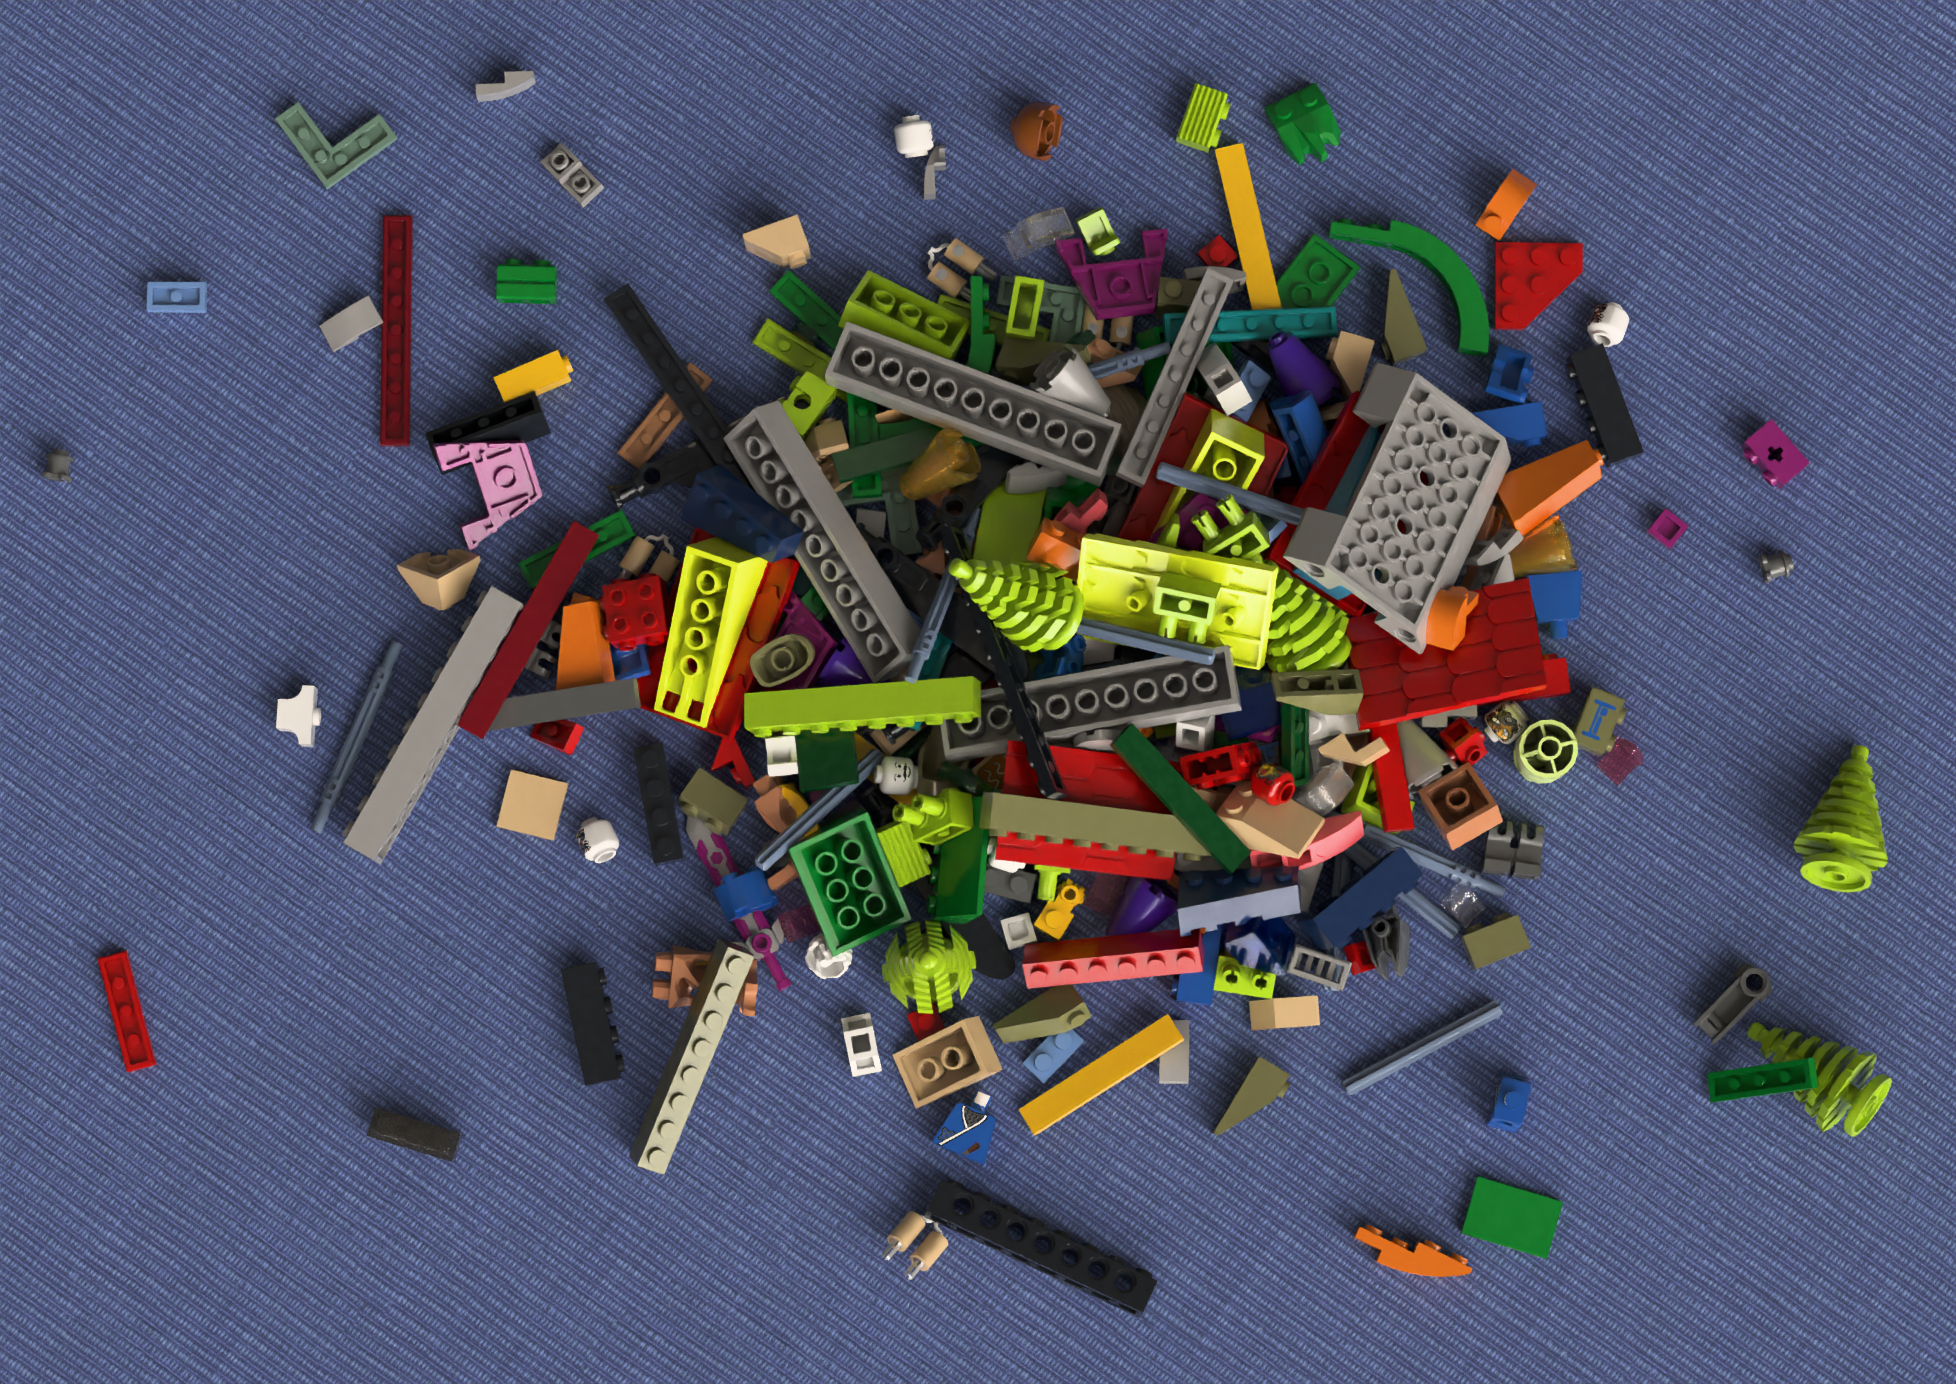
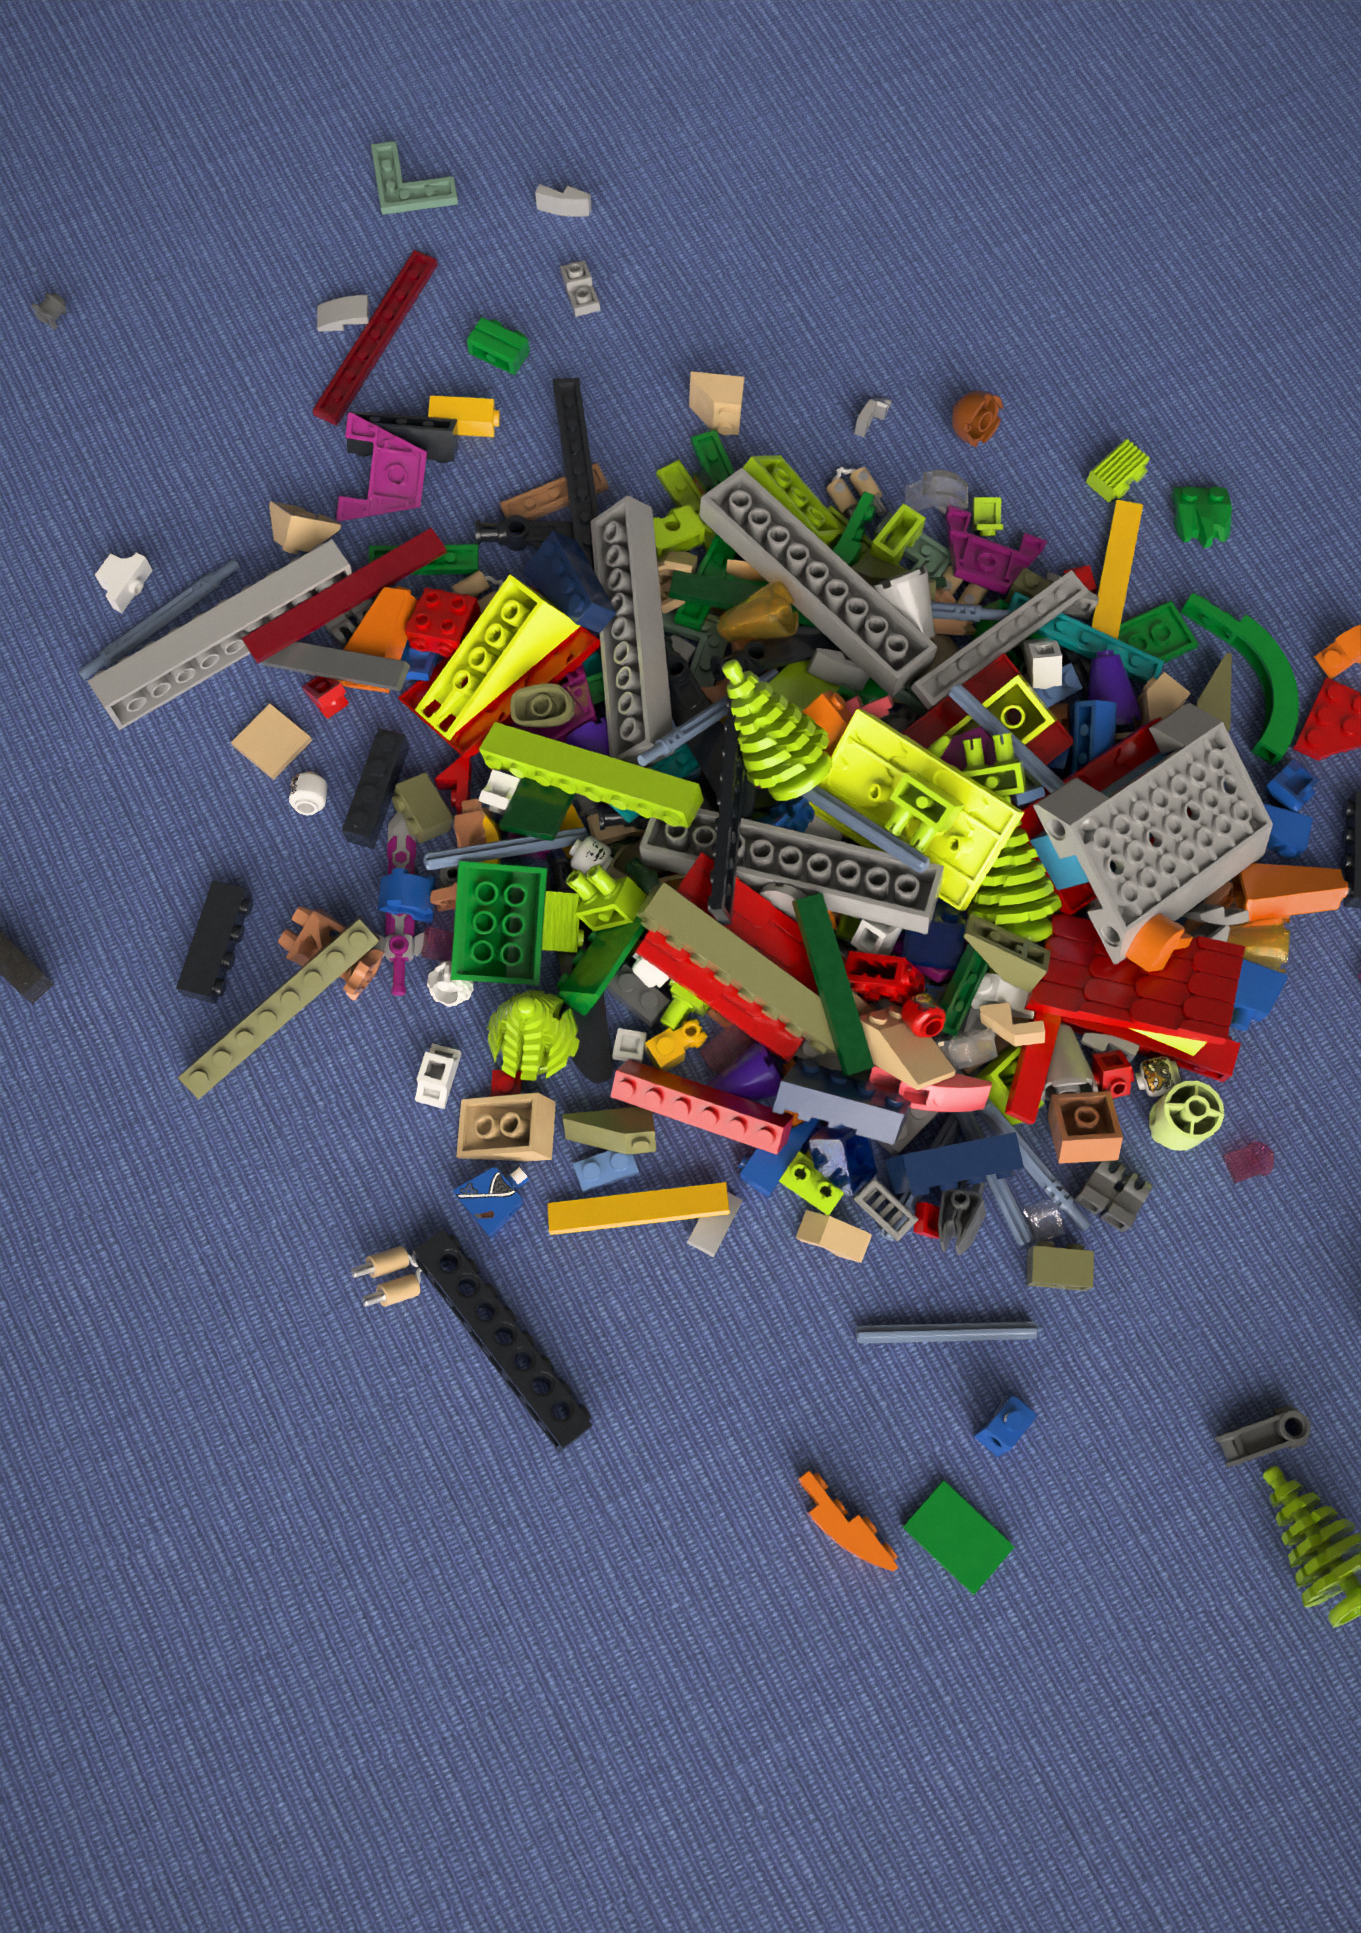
camera: 25 degrees right, 10 degrees down
(177, 297) = (219, 234): medium blue plate -> none
(913, 137) = (870, 379): white head -> none
(1257, 1090) = (771, 1296): olive slope -> none
(1597, 721) = (1245, 1114): olive brick -> none
(1762, 1080) = (1266, 1525): green plate -> none

